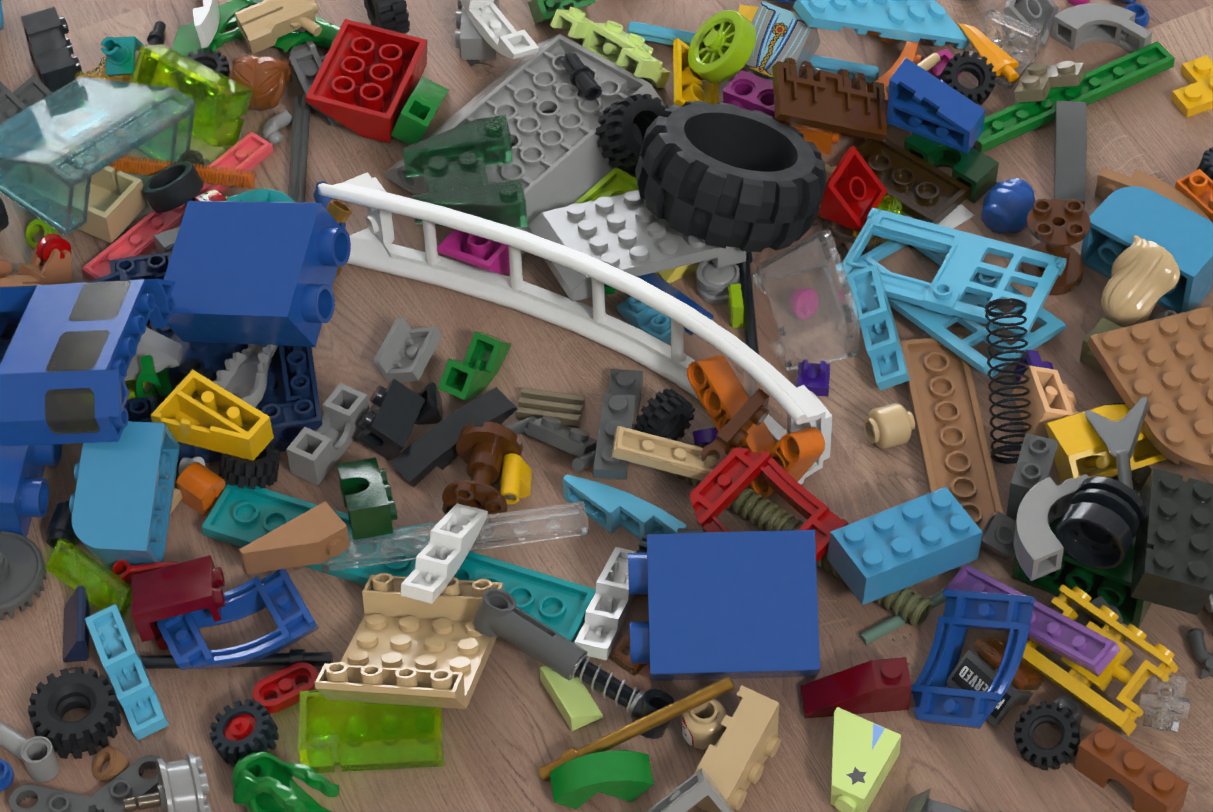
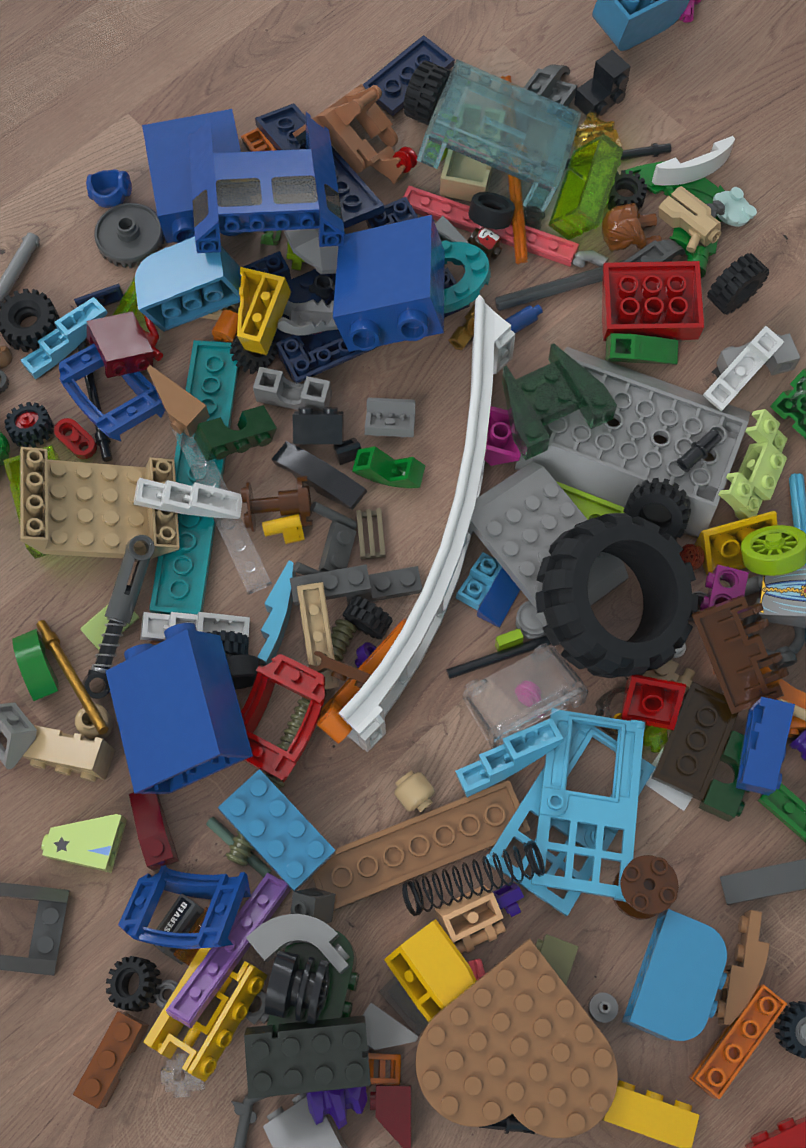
camera: 75 degrees right, 20 degrees up
(120, 54) = (619, 129): teal bracket -> none
(160, 380) = (291, 256): green helmet -> none
(814, 377) = (455, 720): dark purple tile -> none
(1008, 206) = (693, 838): blue hair -> none
(1031, 468) = (367, 920): dark grey panel -> none
(1121, 436) = (417, 988): piece -> none
(1138, 282) = (619, 971): tan piece -> none

